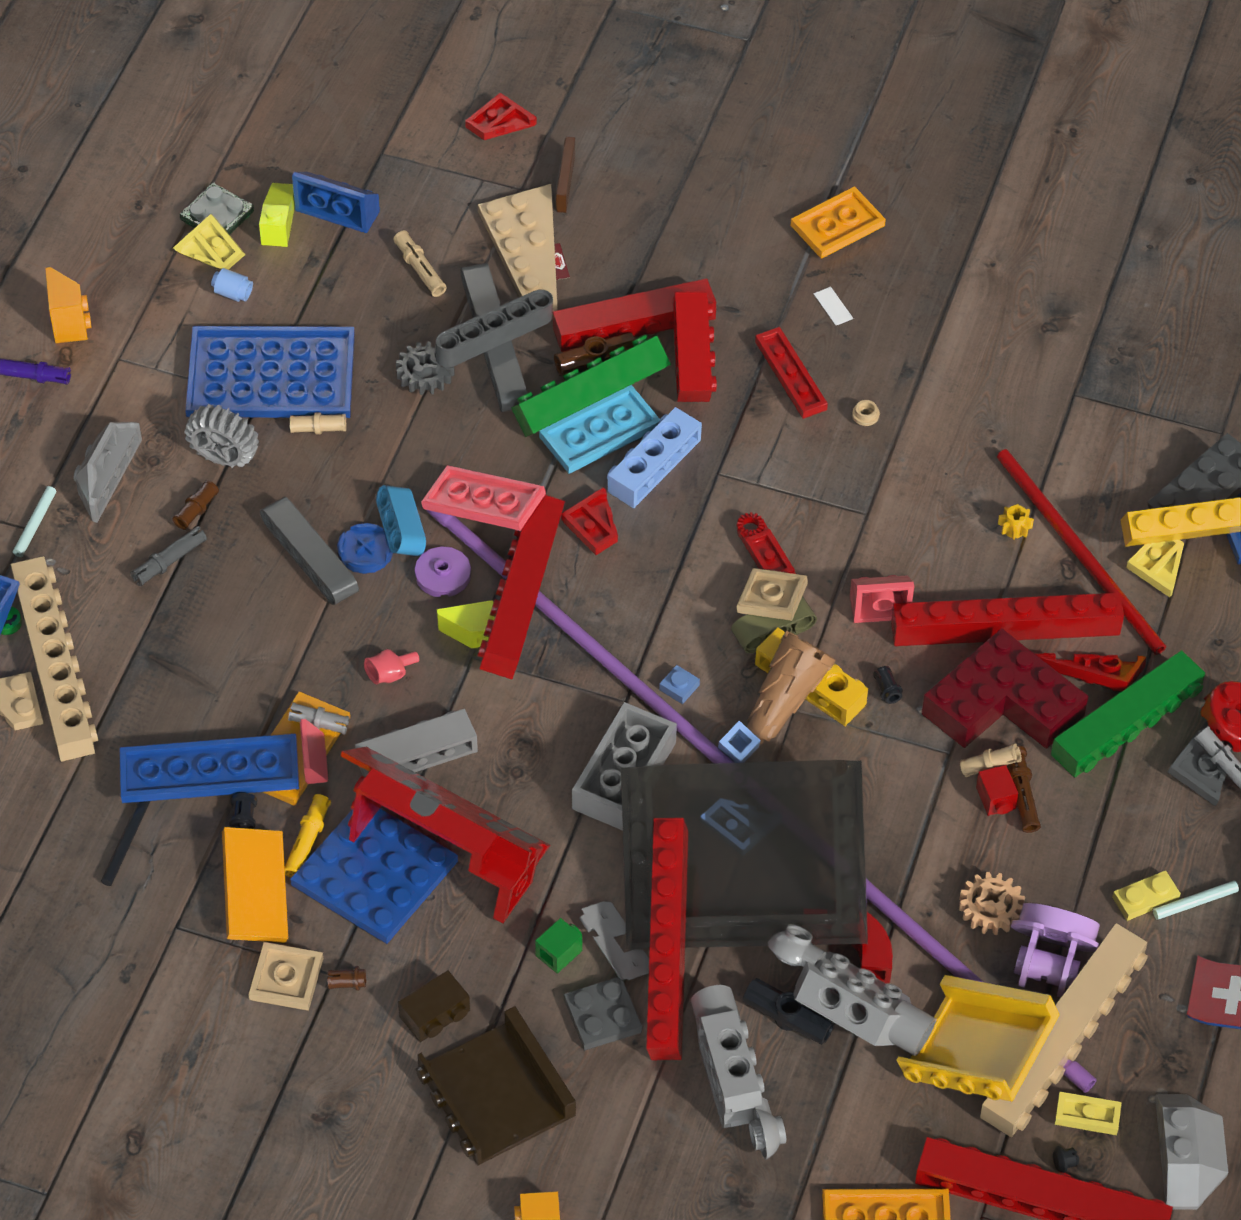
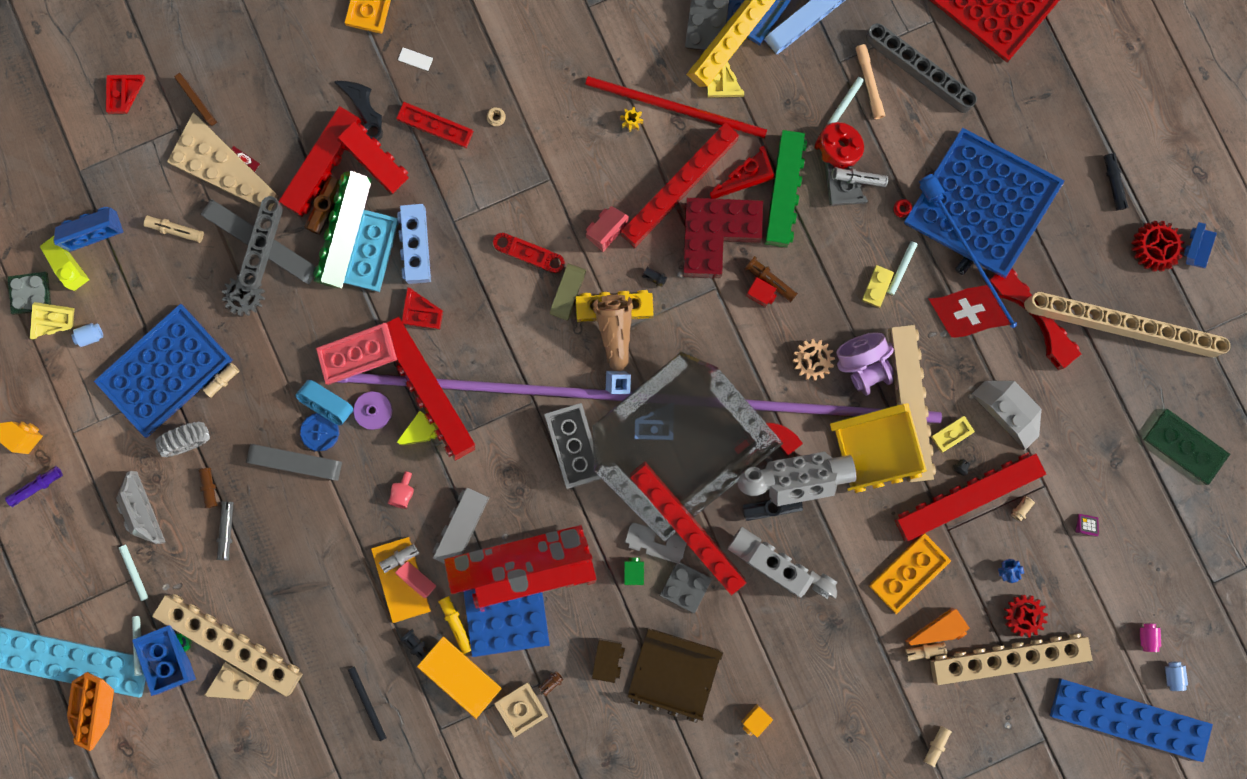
camera: 45 degrees left, 30 degrees up
(209, 768) = (373, 636): blue plate -> none
(679, 684) = (552, 369): medium blue plate -> none
(737, 294) = (361, 98): none -> black piece
(772, 594) = (555, 279): tan tile -> none
(990, 759) = (745, 279): tan pin -> none

